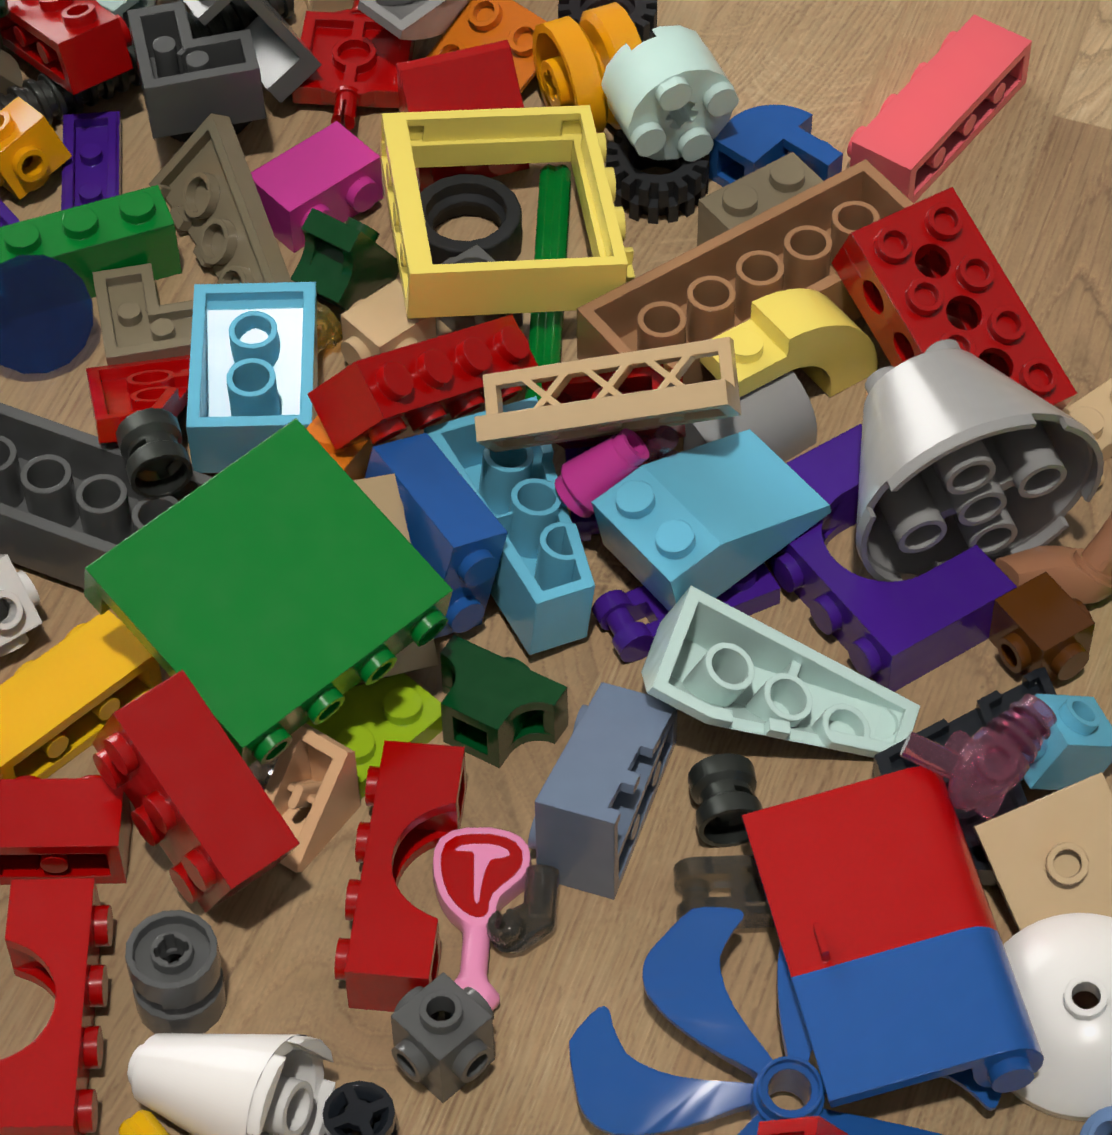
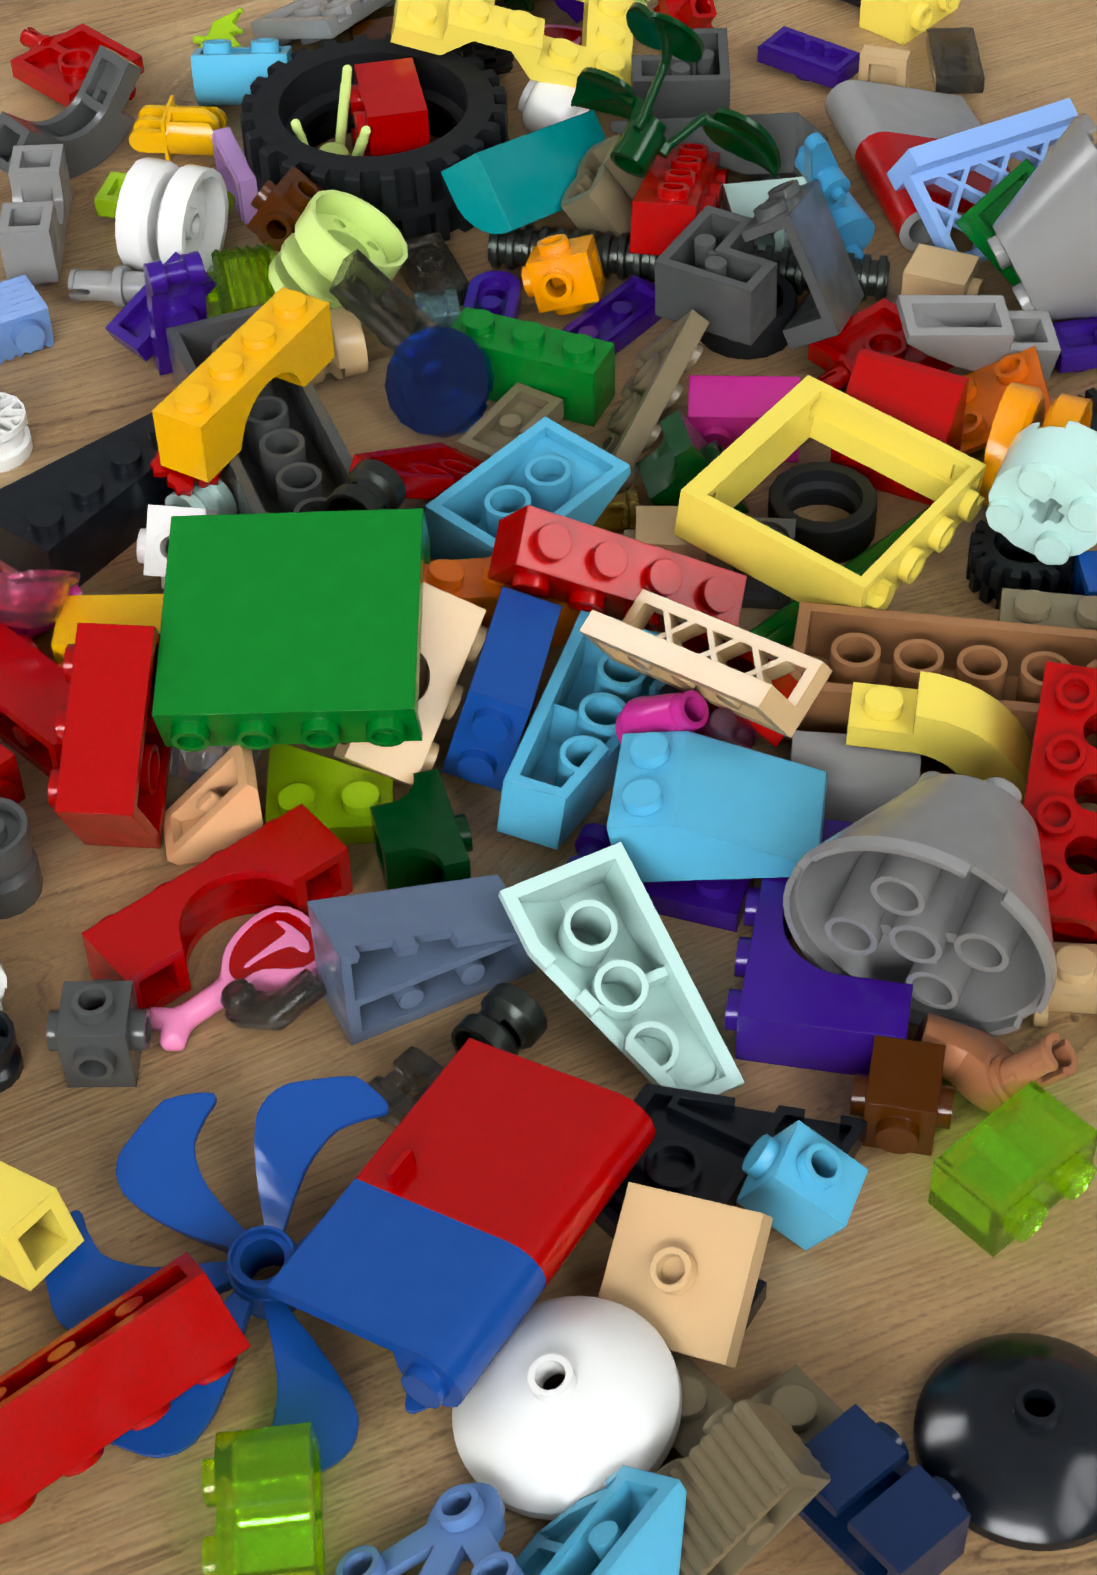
camera: 45 degrees right, 5 degrees down
(992, 760) = (685, 1138): clear pink piece -> none

